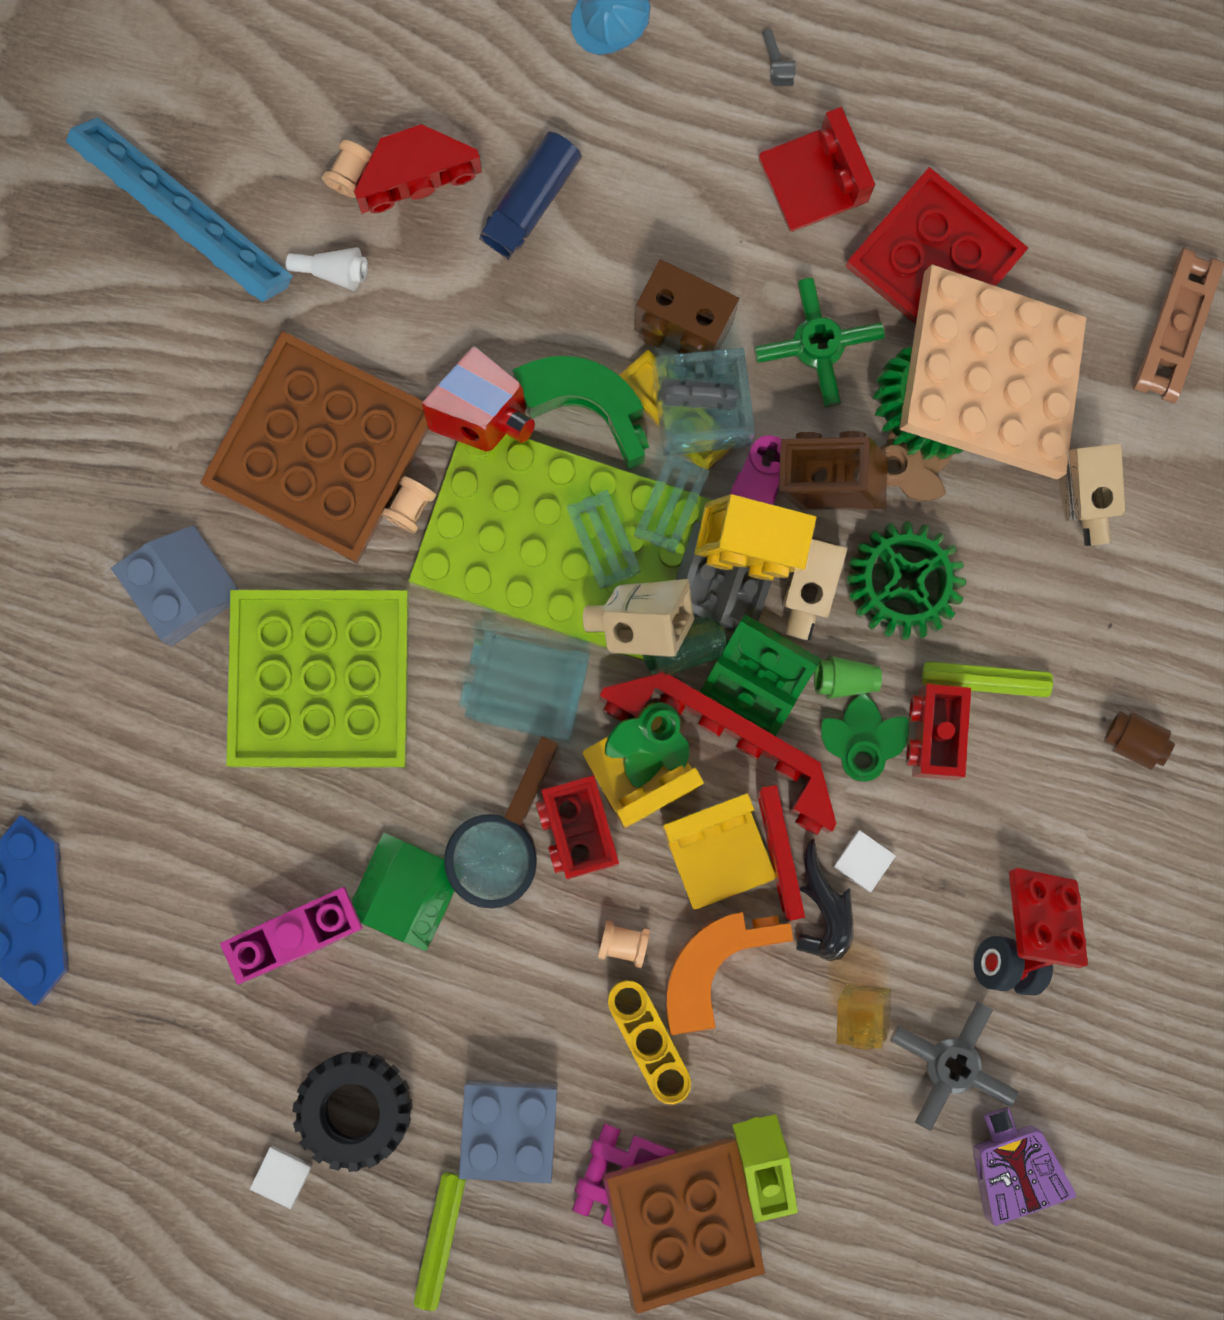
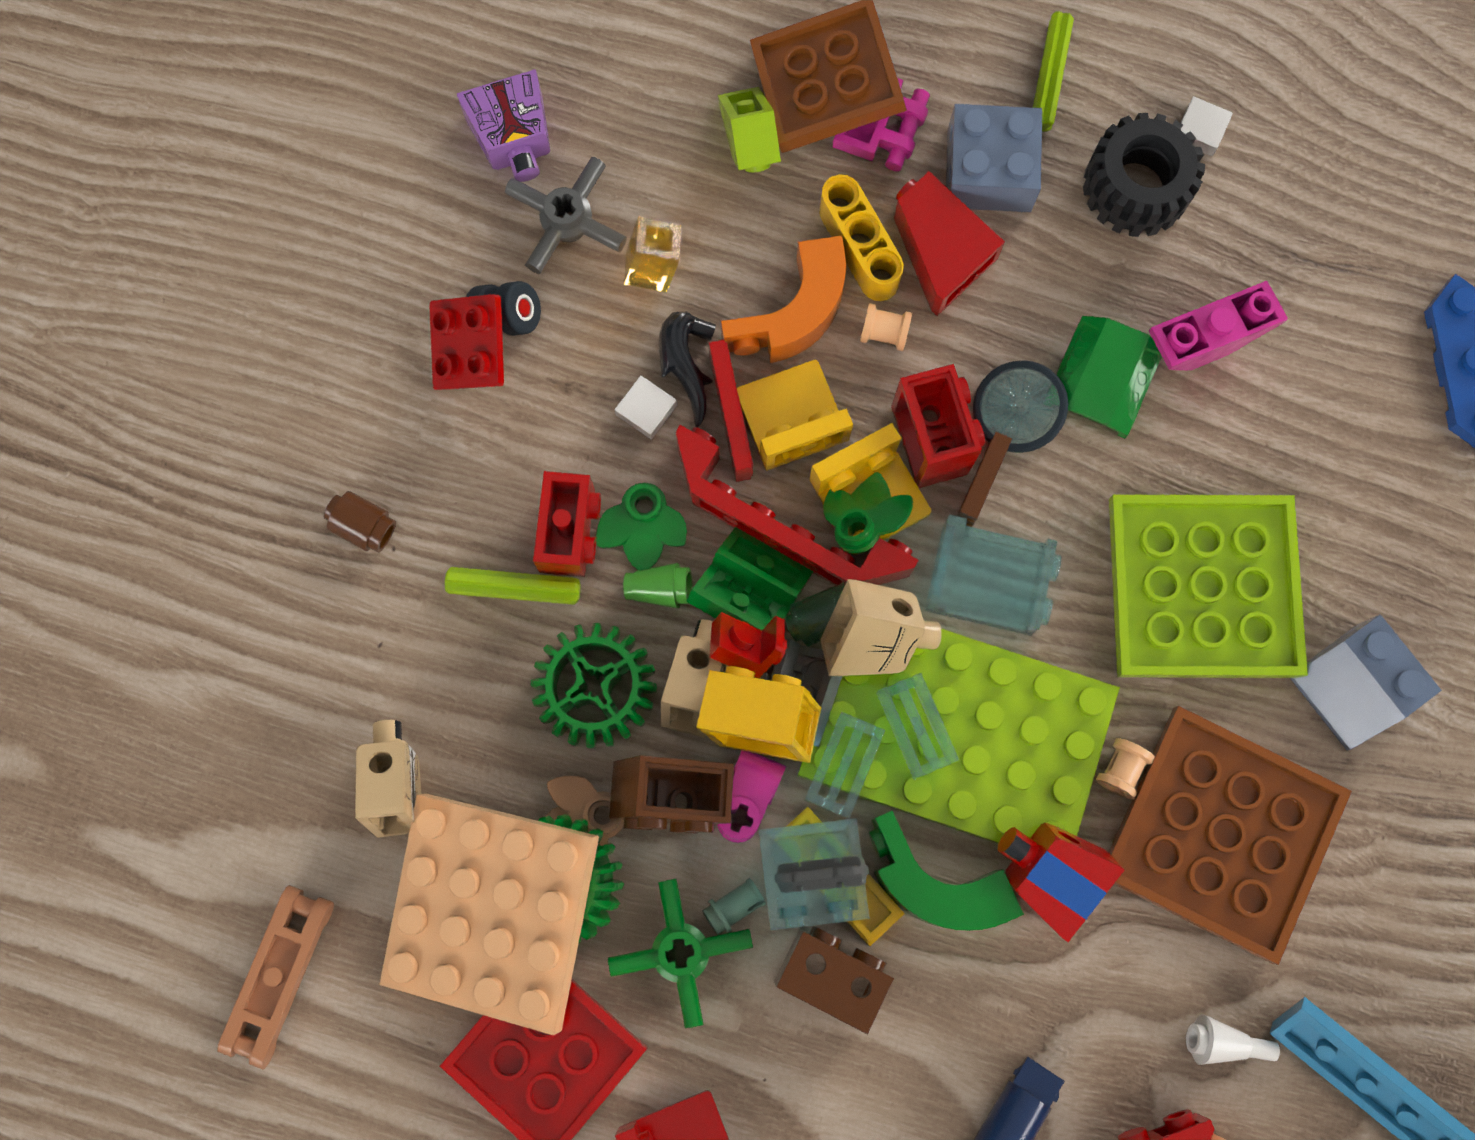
camera: 175 degrees left, 5 degrees down
(563, 1039) = (943, 240): none -> red slope
(766, 607) = (745, 646): none -> red bracket
(773, 382) = (733, 907): none -> sand green pin

